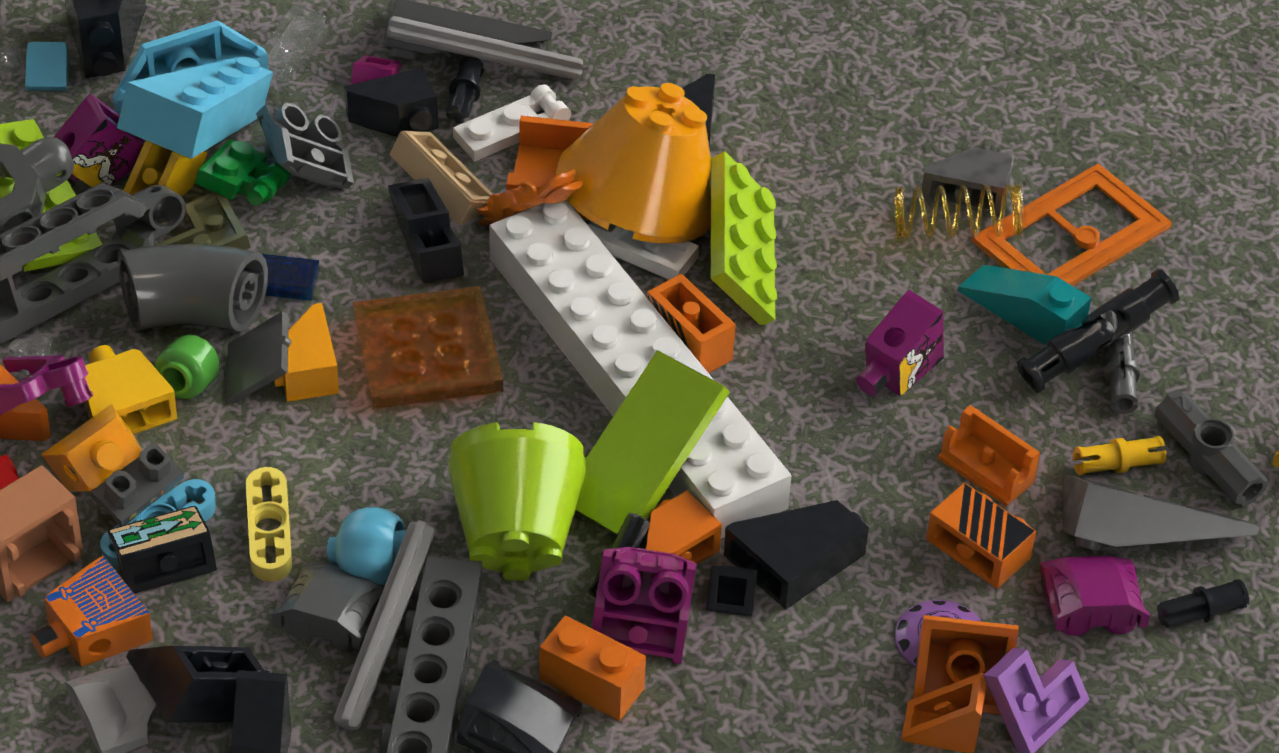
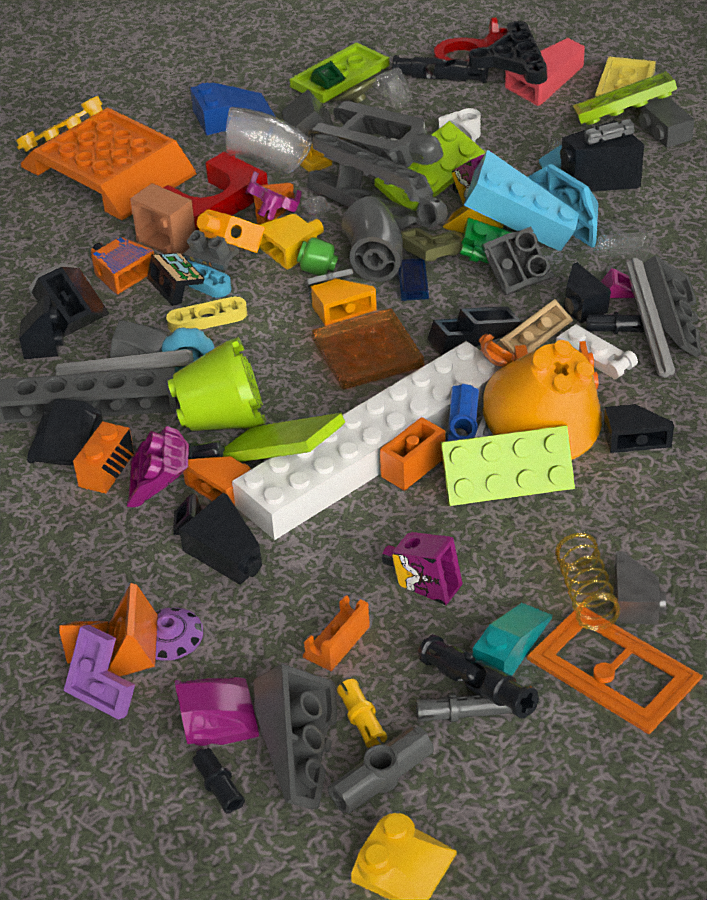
camera: 85 degrees right, 5 degrees down
(664, 259) = (463, 412): none -> blue piece
(981, 535) = (256, 635): orange brick -> none

